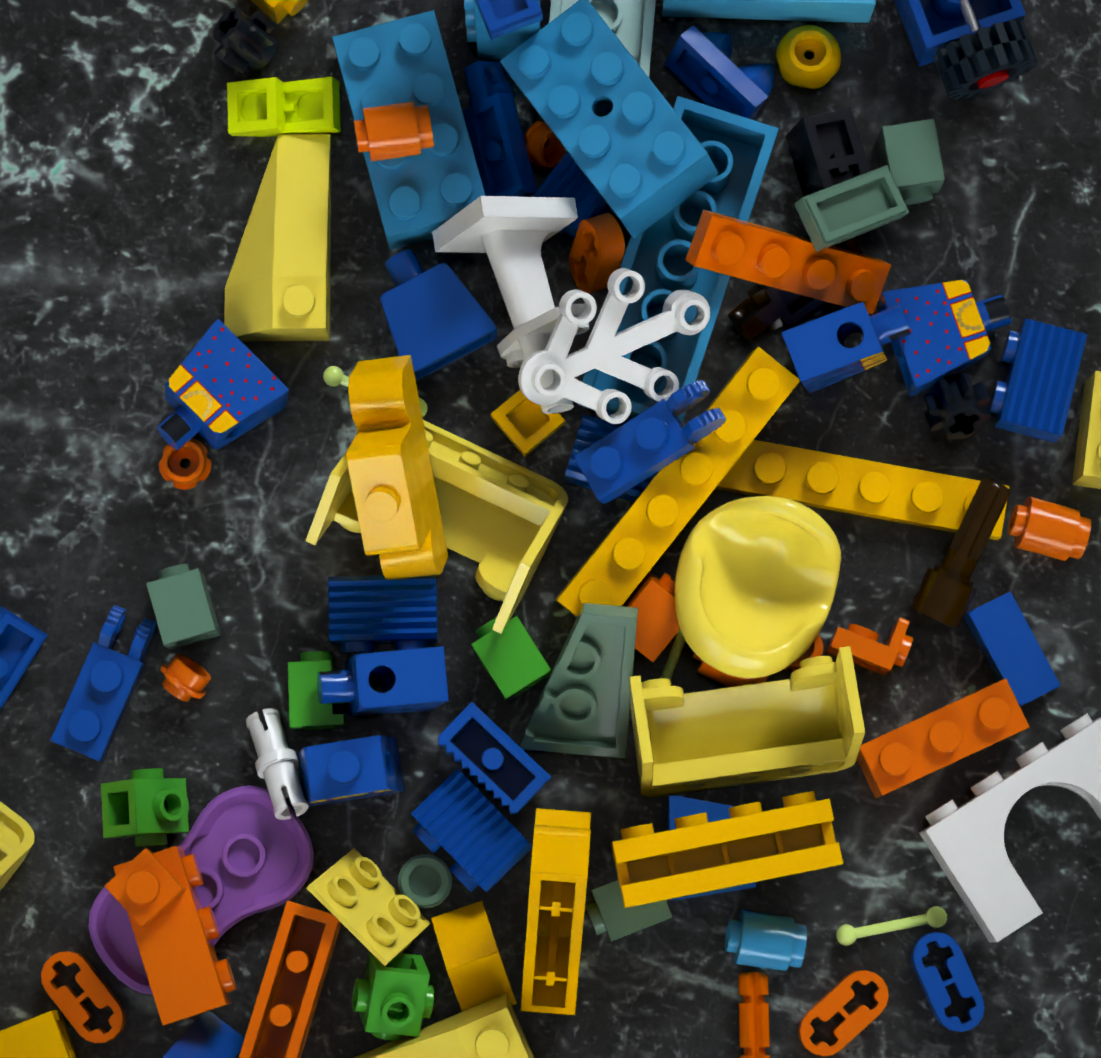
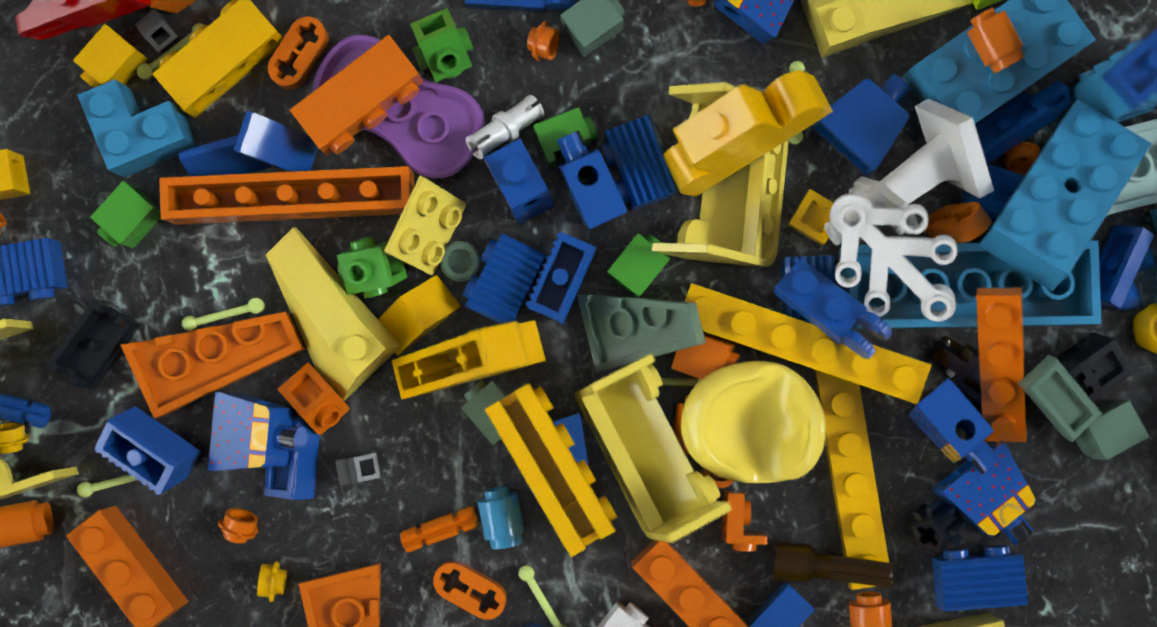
camera: 75 degrees right, 5 degrees up
(144, 887) = (380, 61): orange plate -> none

